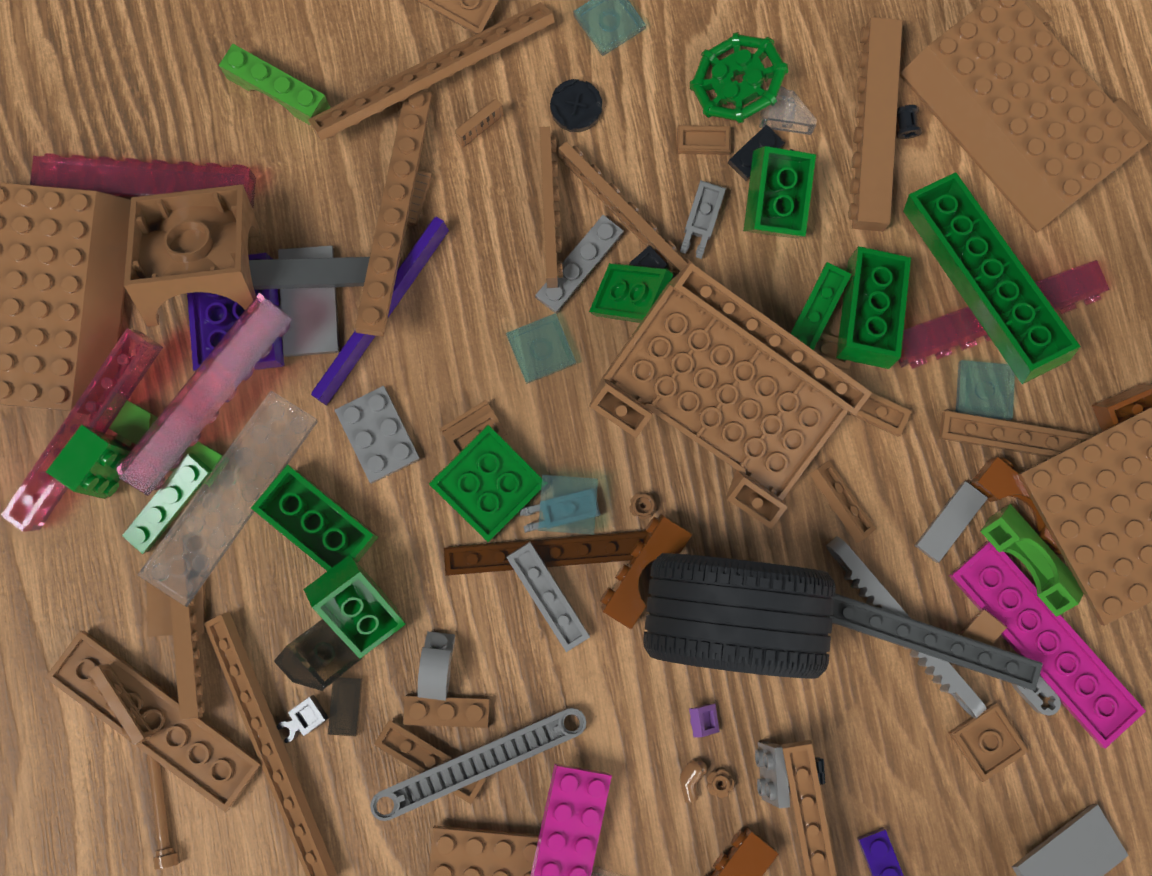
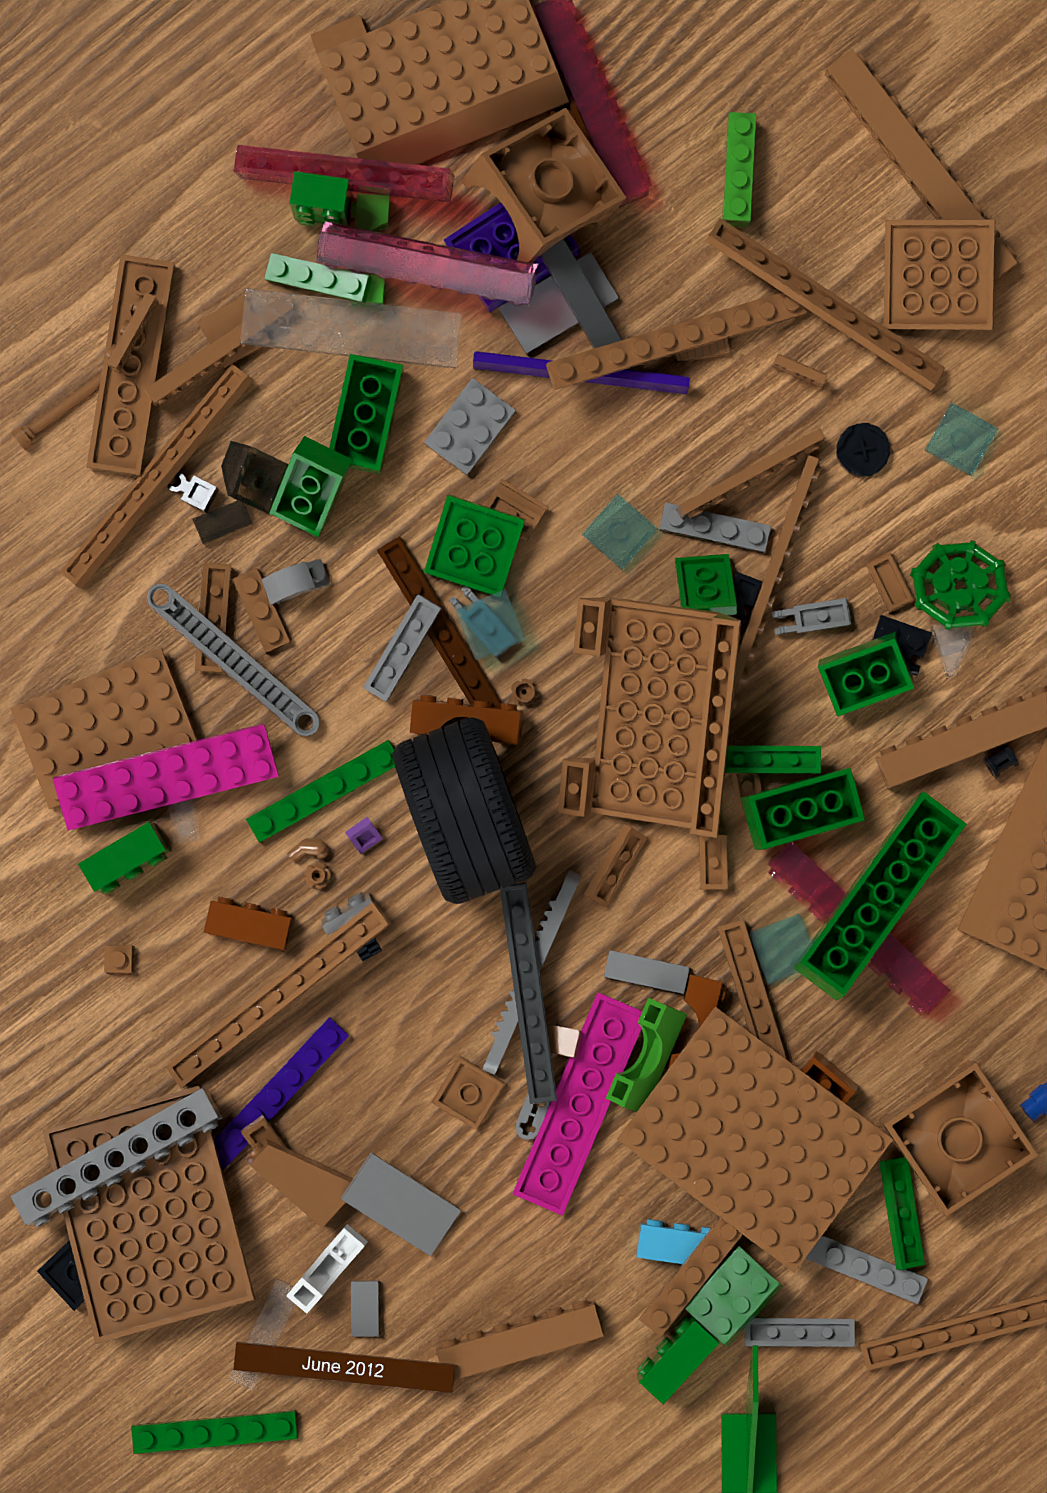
camera: 70 degrees right, 5 degrees up
(643, 739) = (322, 791): none -> green plate

